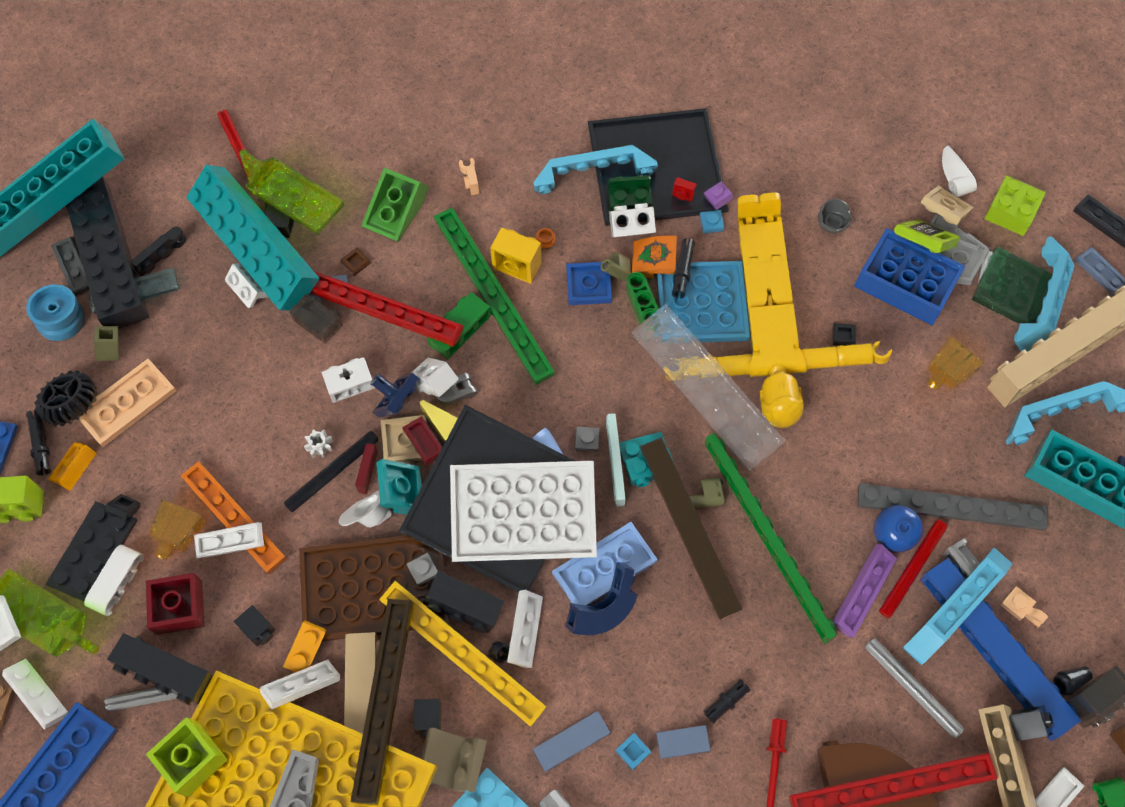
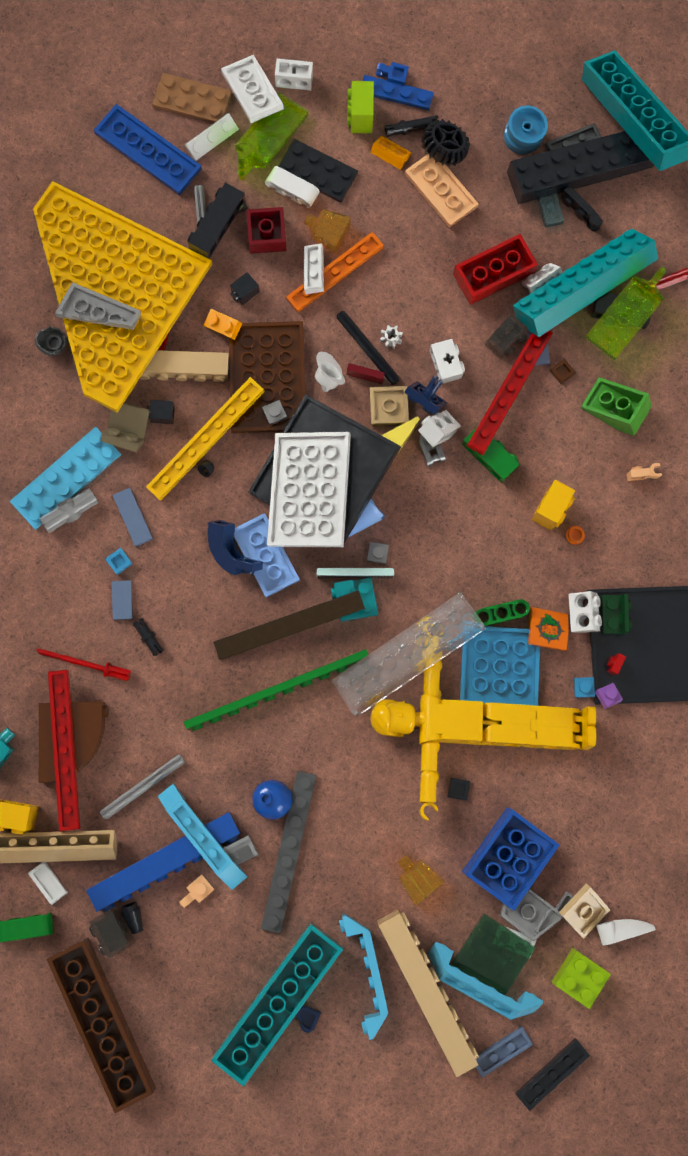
camera: 90 degrees right, 15 degrees up
(106, 343) = (493, 170): olive brick -> none
(123, 506) = (351, 190): black tile -> none
(186, 757) = (146, 239): lime brick -> none
(233, 333) = (495, 269): none -> red brick
(299, 684) = (194, 319): white tile -> none
(382, 703) = (170, 375): dark brown tile -> none
(398, 485) = (344, 395): teal plate -> none
(423, 440) = (384, 418): dark red tile -> none
(463, 602) = (243, 441): black brick -> none
(495, 296) = (520, 485): green plate -> none
(525, 629) = (220, 488): white plate -> none
(581, 162) = (634, 541): medium azure slope -> none
(588, 284) = (525, 568): blue plate -> none
(617, 266) = (539, 596): olive piece -> none
(682, 275) = (523, 648): black pin -> none
(711, 494) = (318, 649): olive piece -> none
(836, 210) = (579, 801): dark grey hair -> none
(864, 590) = (223, 761): medium lavender plate -> none
(913, 568) = (239, 807): red axle -> none
(927, 235) = (552, 878): lime container -> none
(1031, 722) = (98, 869): brick -> none

